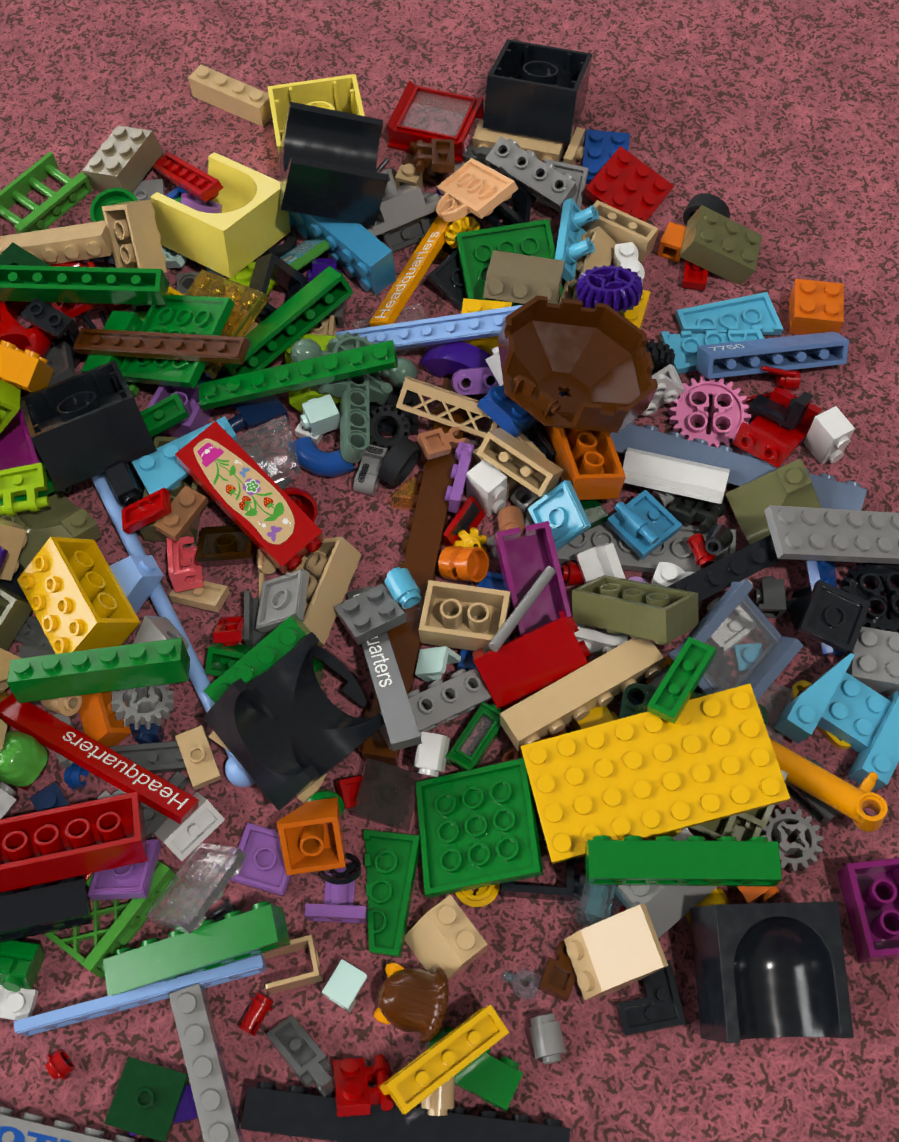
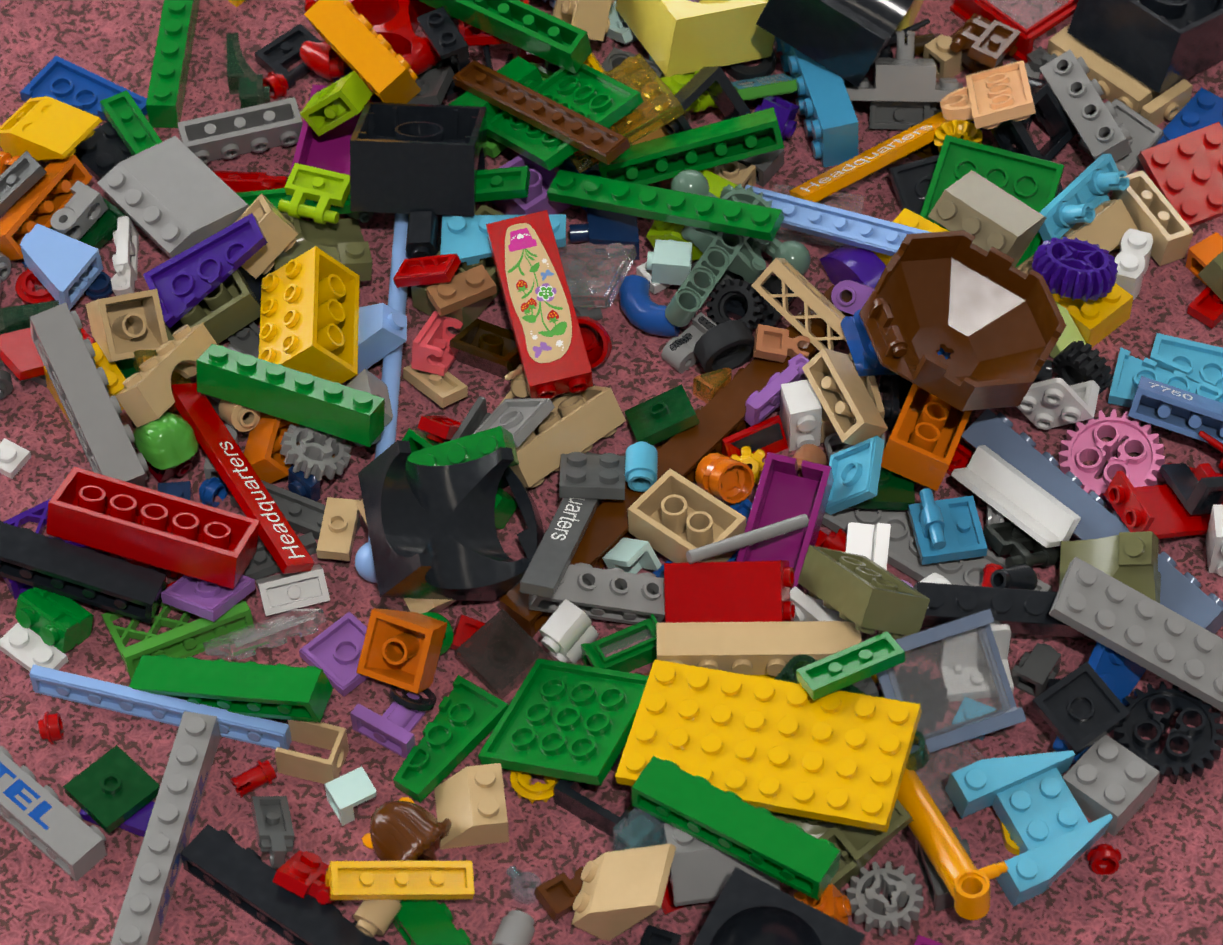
camera: 30 degrees right, 10 degrees down
(387, 538) = (662, 416): none -> dark green plate

